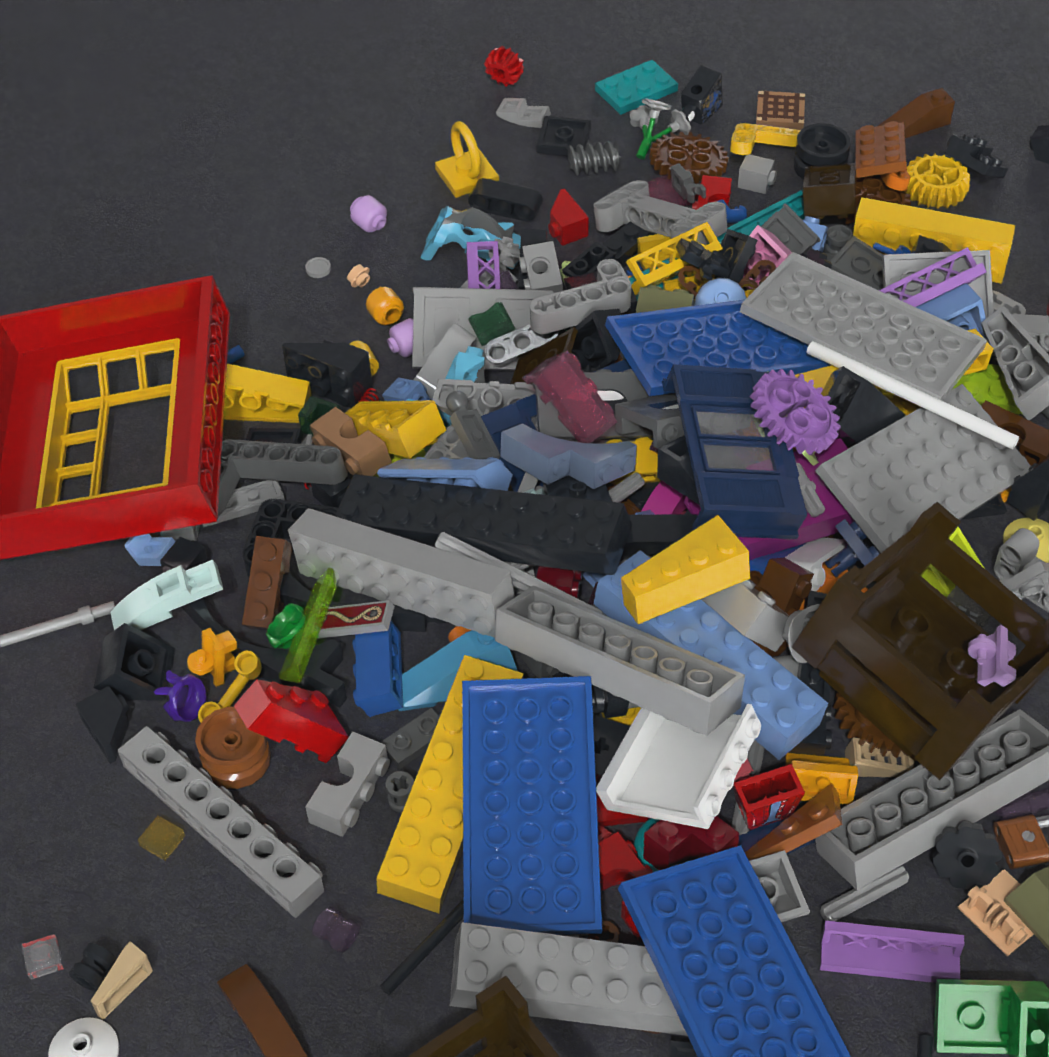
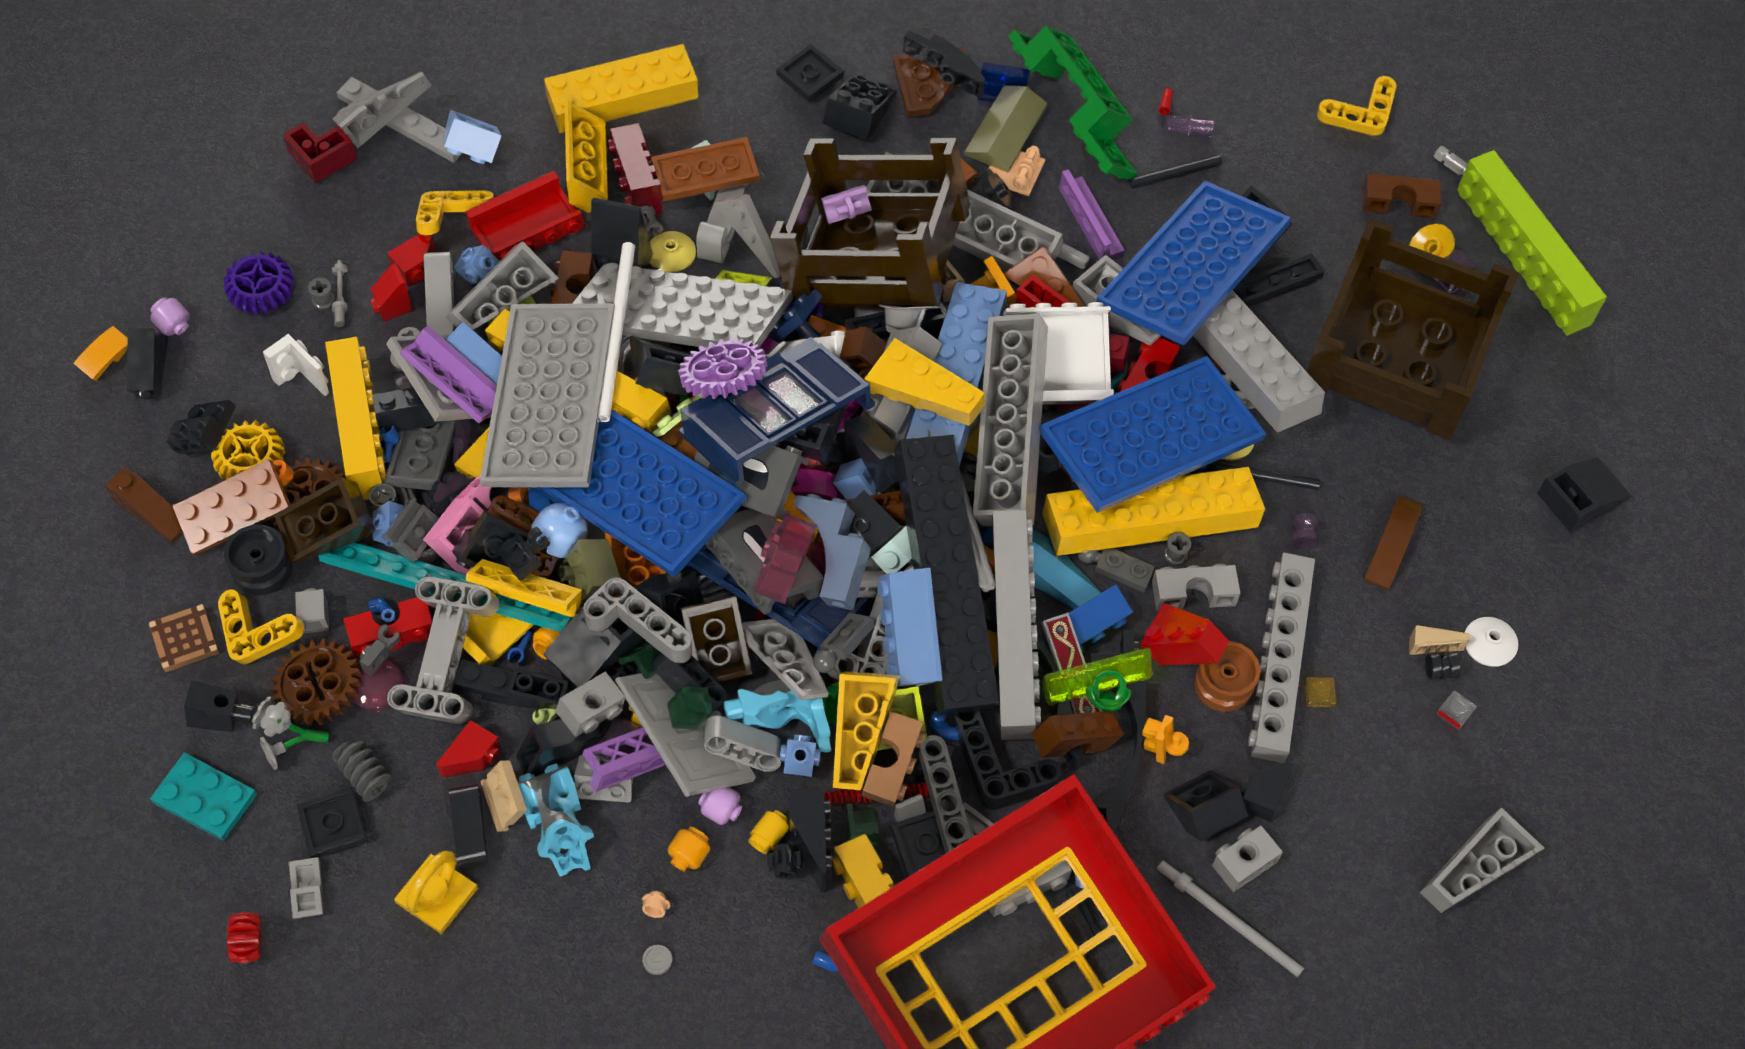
camera: 125 degrees left, 10 degrees up
(61, 669) = (1237, 871): none -> light grey brick
(166, 592) = (1143, 807): light aqua slope -> none
(183, 701) = (1208, 749): dark purple piece -> none
(248, 669) = (1200, 723): yellow bar -> none
(368, 213) = (563, 944): lavender head -> none
(508, 253) = (572, 757): light grey gear -> none
(522, 219) = (503, 795): none -> tan plate
(1020, 214) = (289, 357): none -> white bracket

